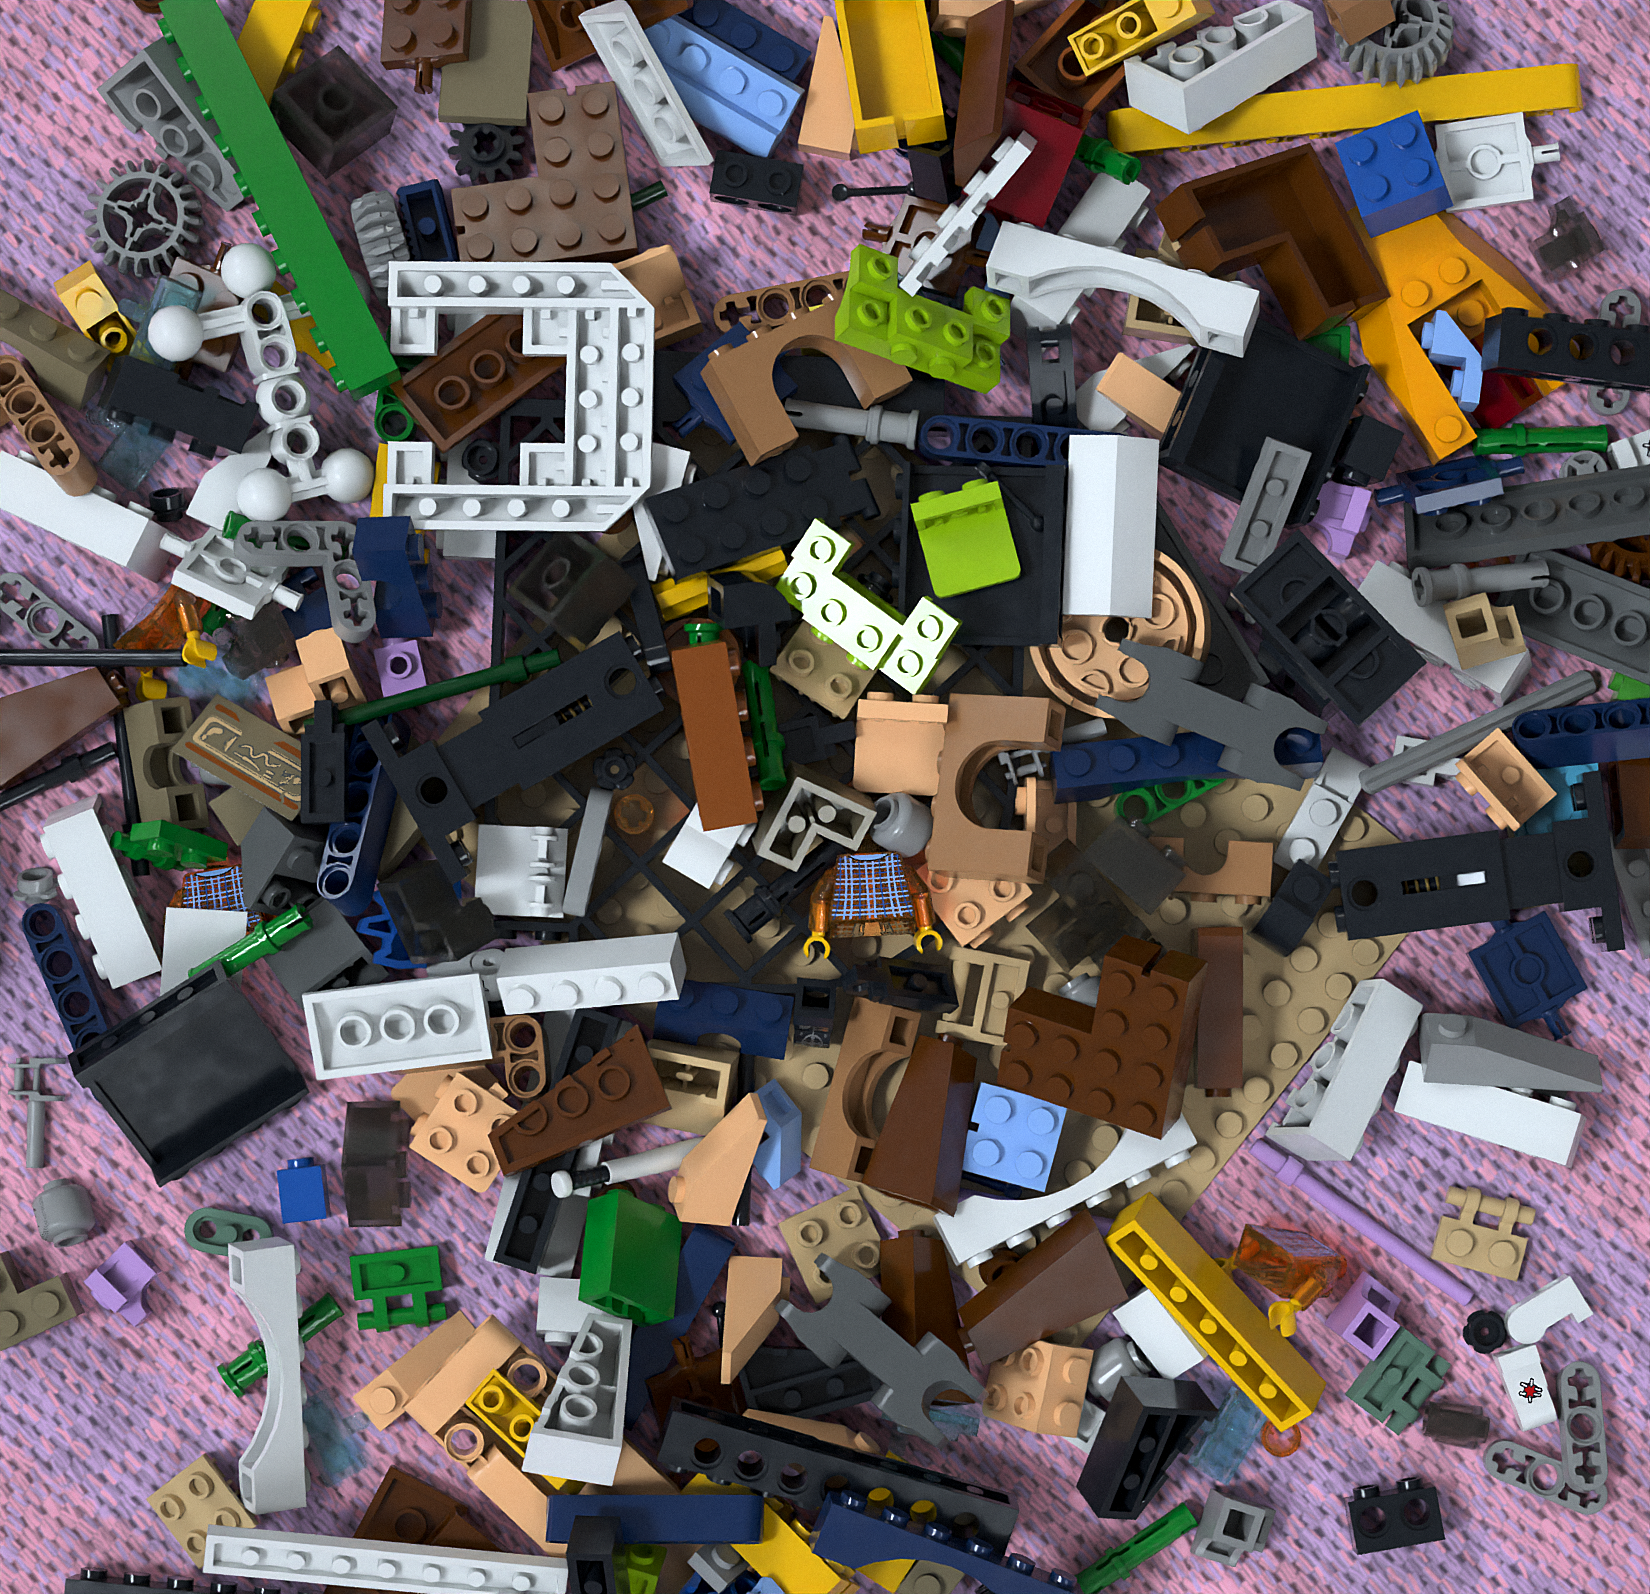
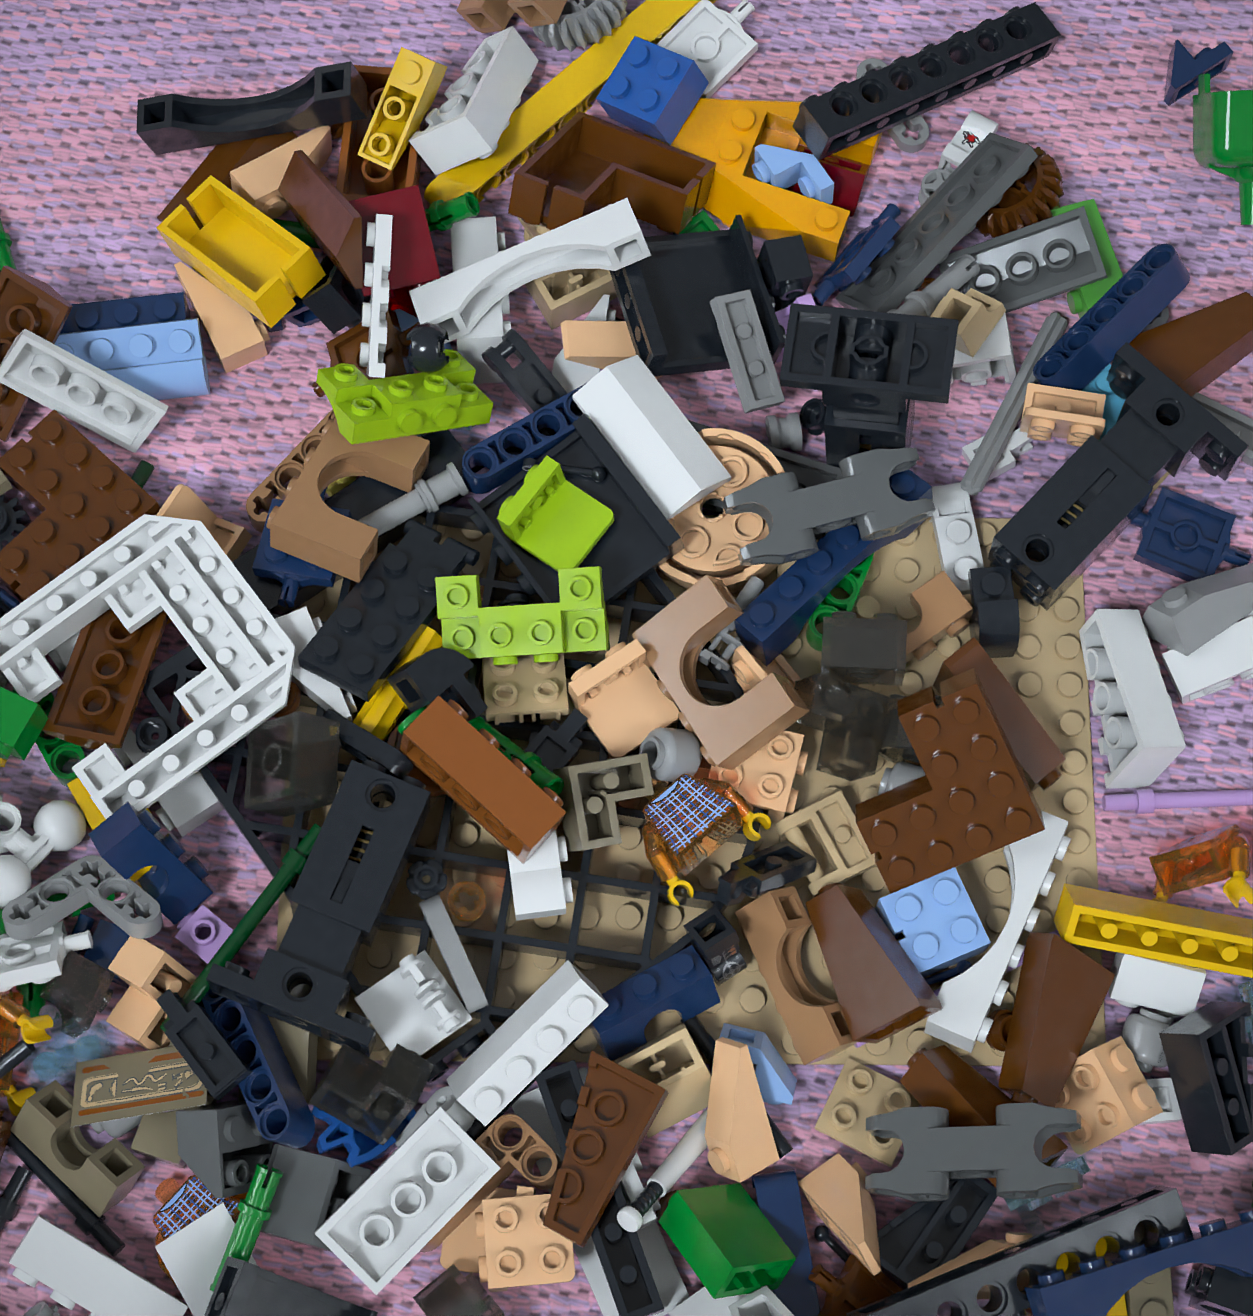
camera: 40 degrees left, 15 degrees down
(169, 846) = (122, 1203): green plate -> none
(756, 182) = (212, 409): black brick -> none
(769, 901) = (618, 884): black pin -> none
(841, 192) = (279, 378): black hinge -> none
(975, 292) = (427, 347): none -> black piece
(1531, 440) = (890, 192): green pin -> none
(1567, 244) = (803, 56): clear smoke brick -> none

